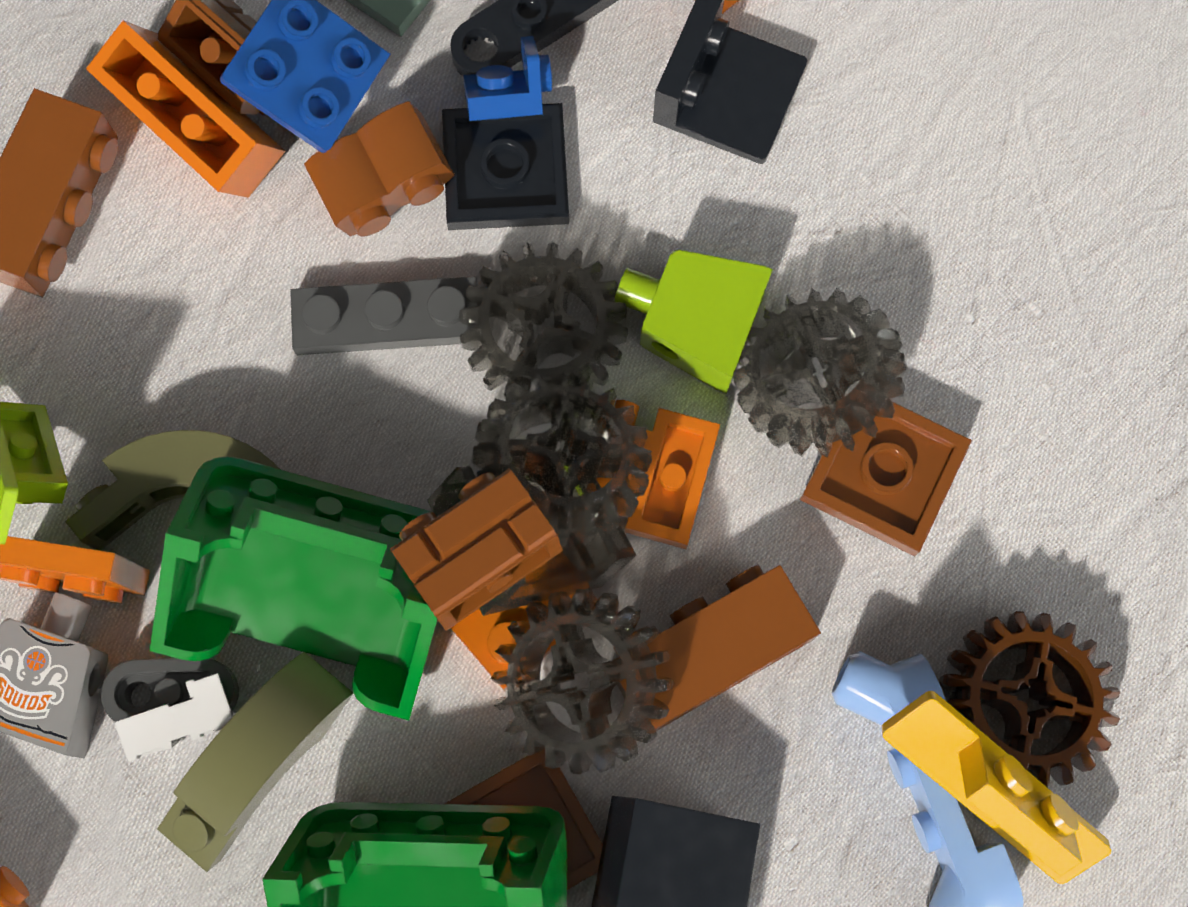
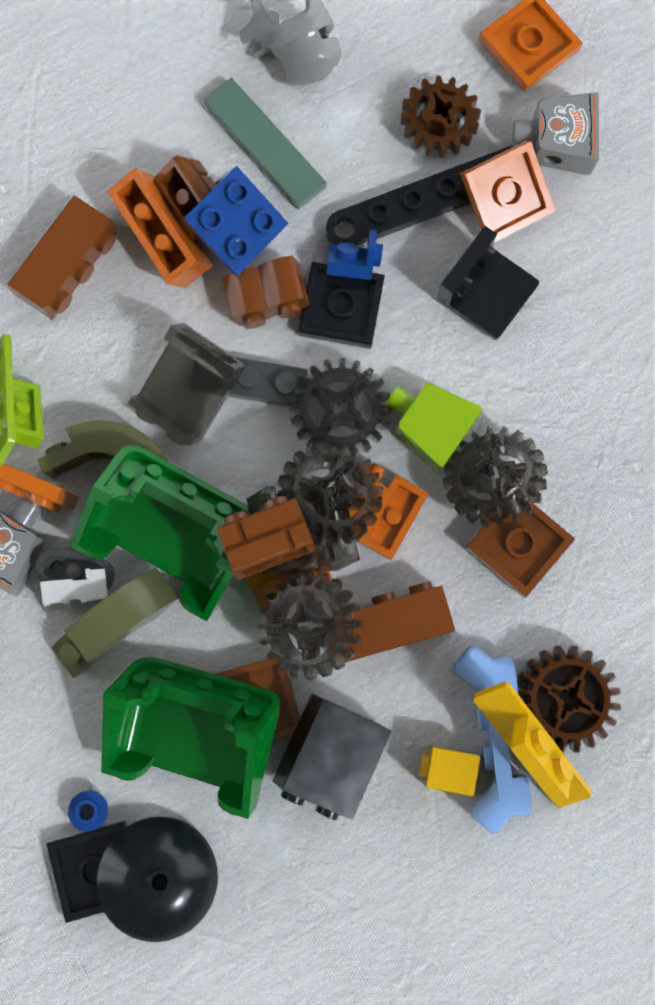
camera: 15 degrees right, 5 degrees up
(287, 345) = (187, 385): none -> clear smoke panel
(870, 867) = (449, 770): none -> yellow brick

